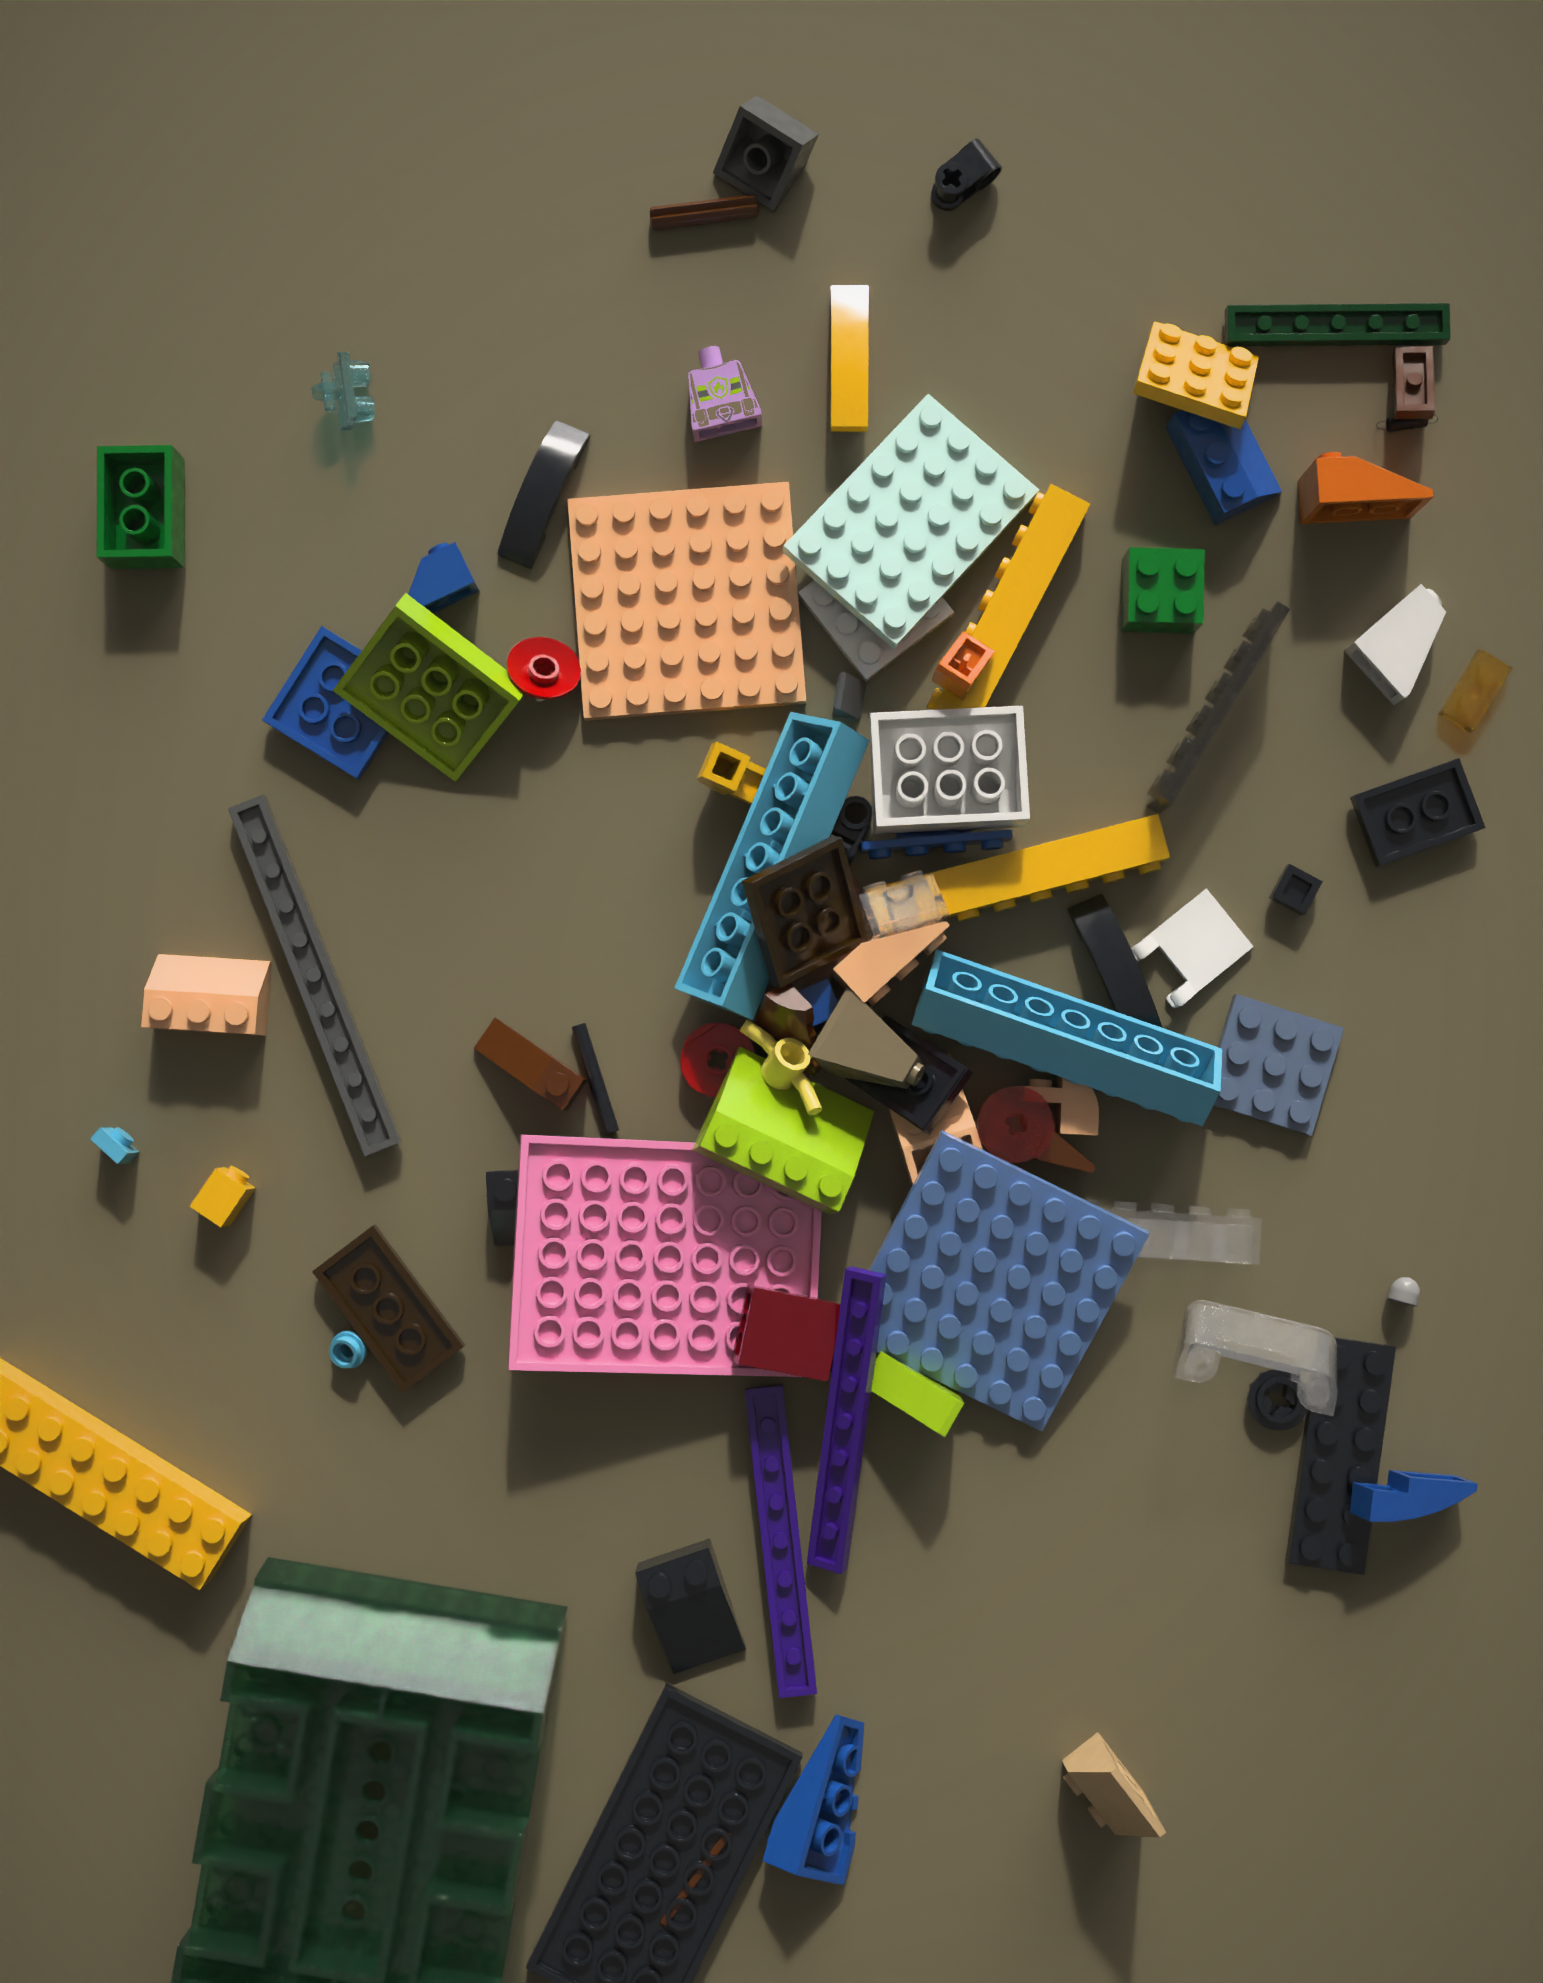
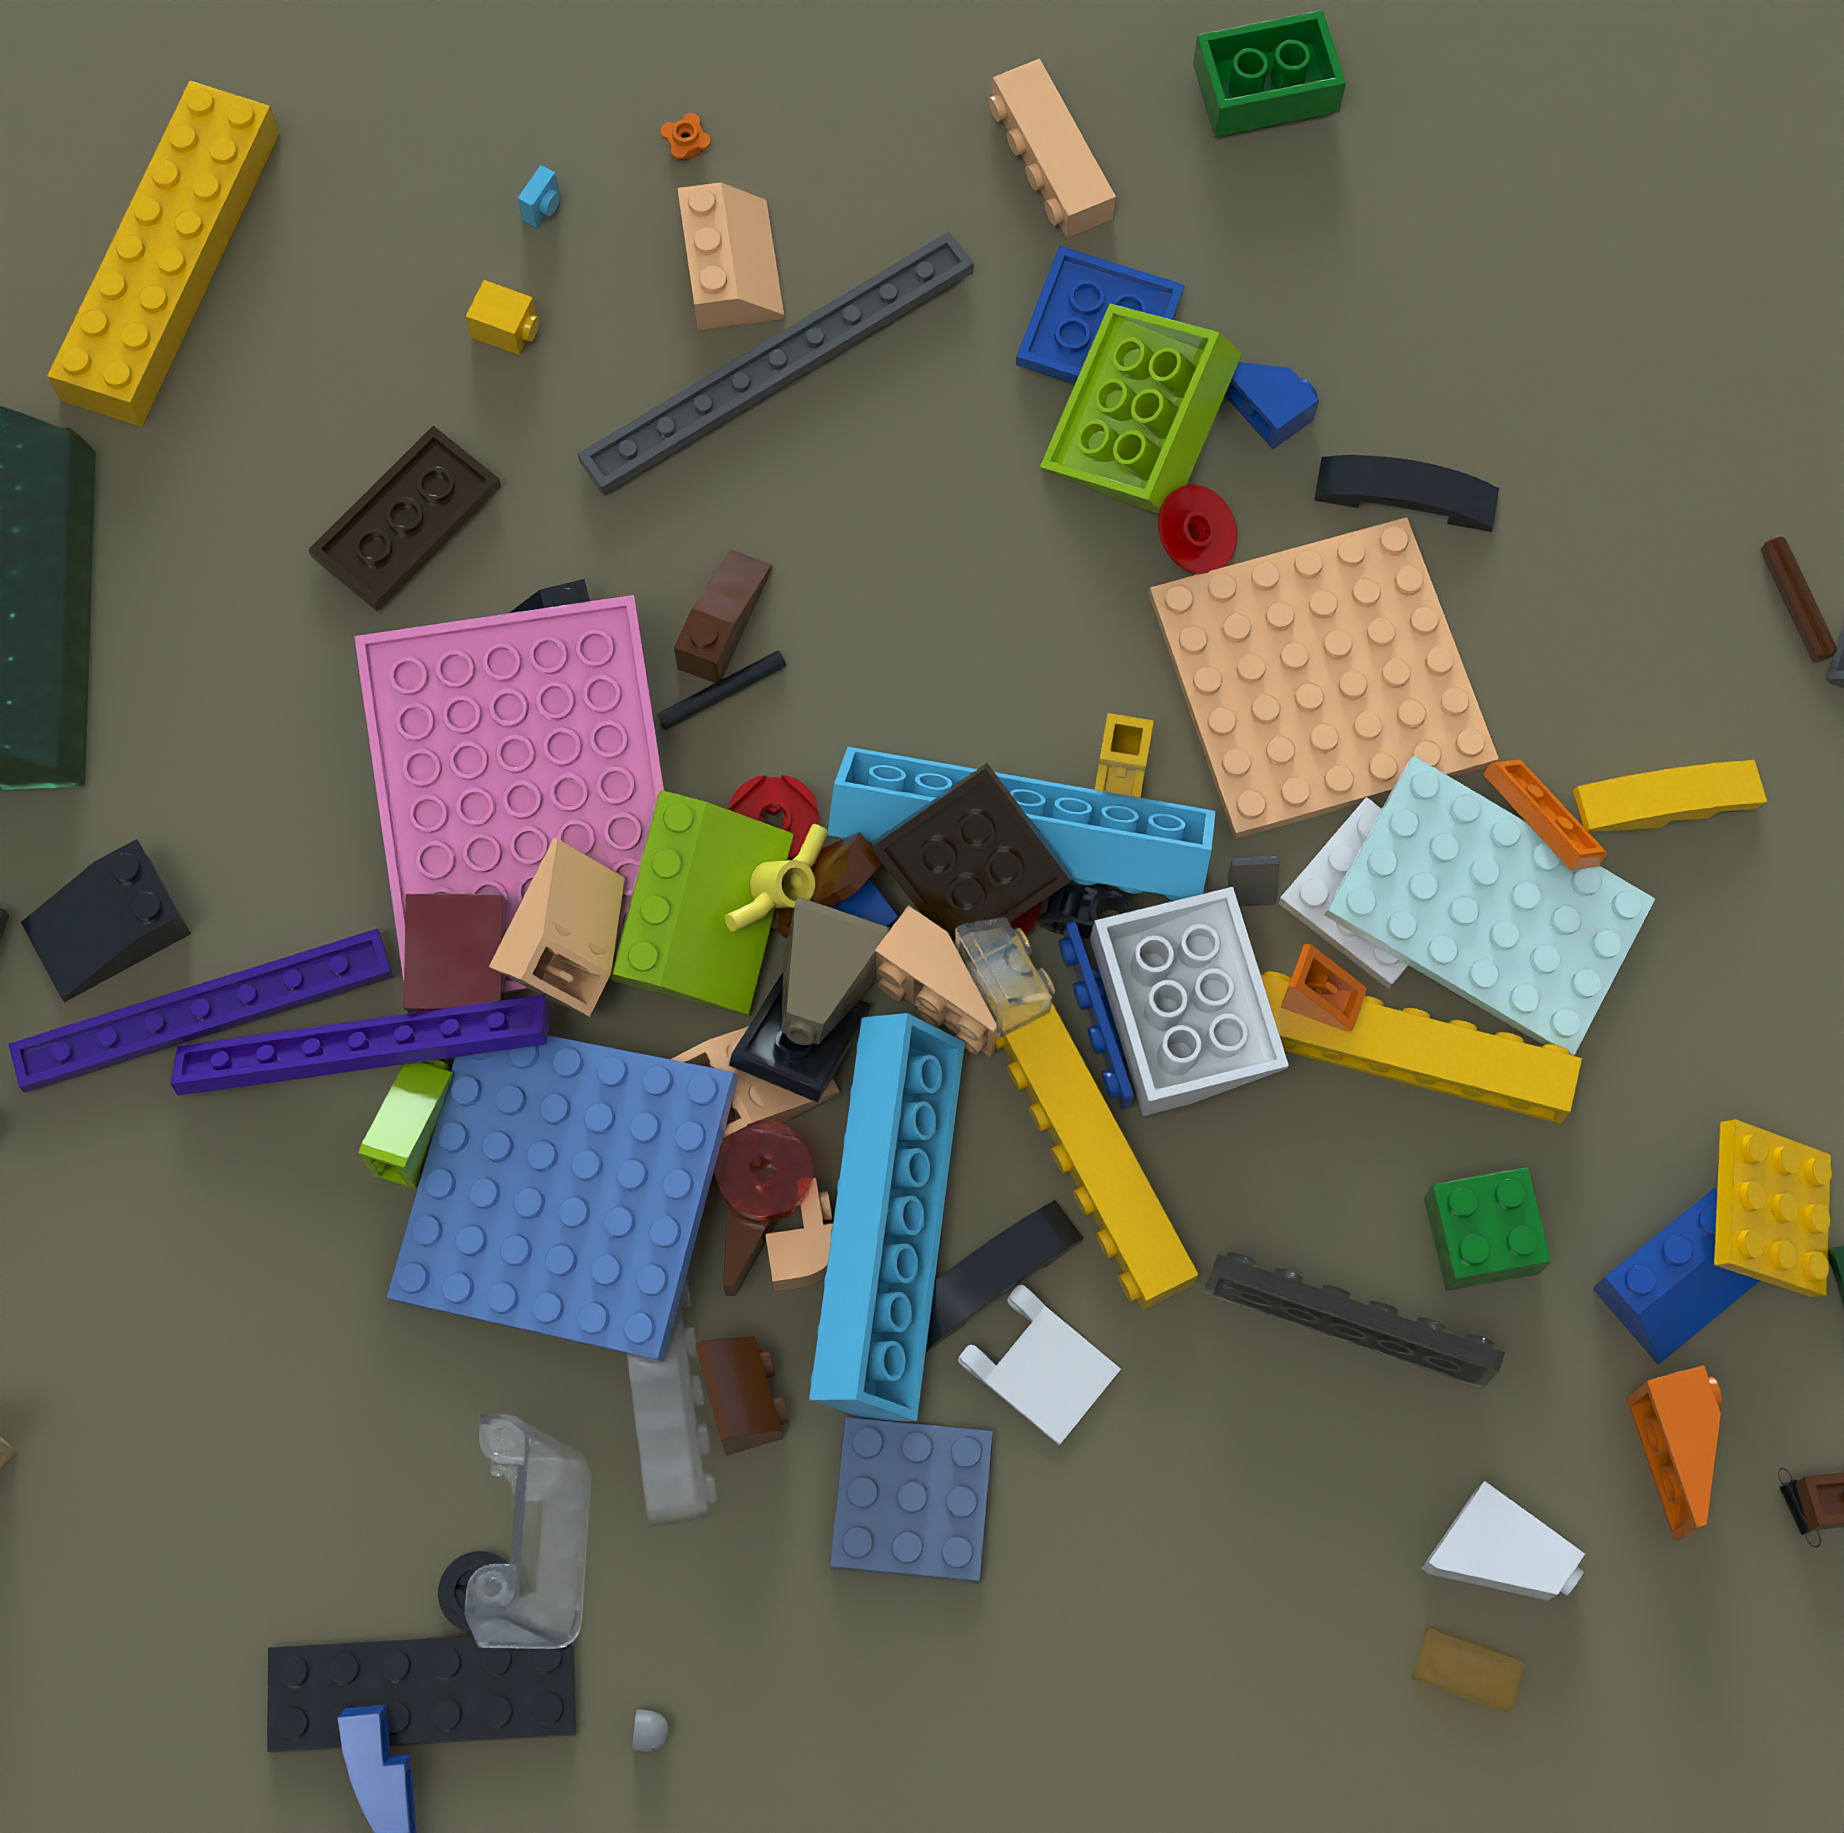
camera: 75 degrees right, 15 degrees down
(93, 1007) = (686, 147): none -> orange plate
(167, 705) = (1052, 149): none -> light nougat brick
(341, 1355) = (348, 483): medium azure plate -> none
(346, 376) = (1447, 266): clear light blue hips -> none
(721, 397) = (1576, 659): lavender torso -> none
(793, 1243) = (564, 930): none -> light nougat slope
(846, 458) = (1545, 814): none -> orange tile
(1176, 1176) = (740, 1392): none -> reddish brown slope
(1295, 889) = (1145, 1480): black plate -> none
(1417, 812) = (1285, 1621): black plate -> none

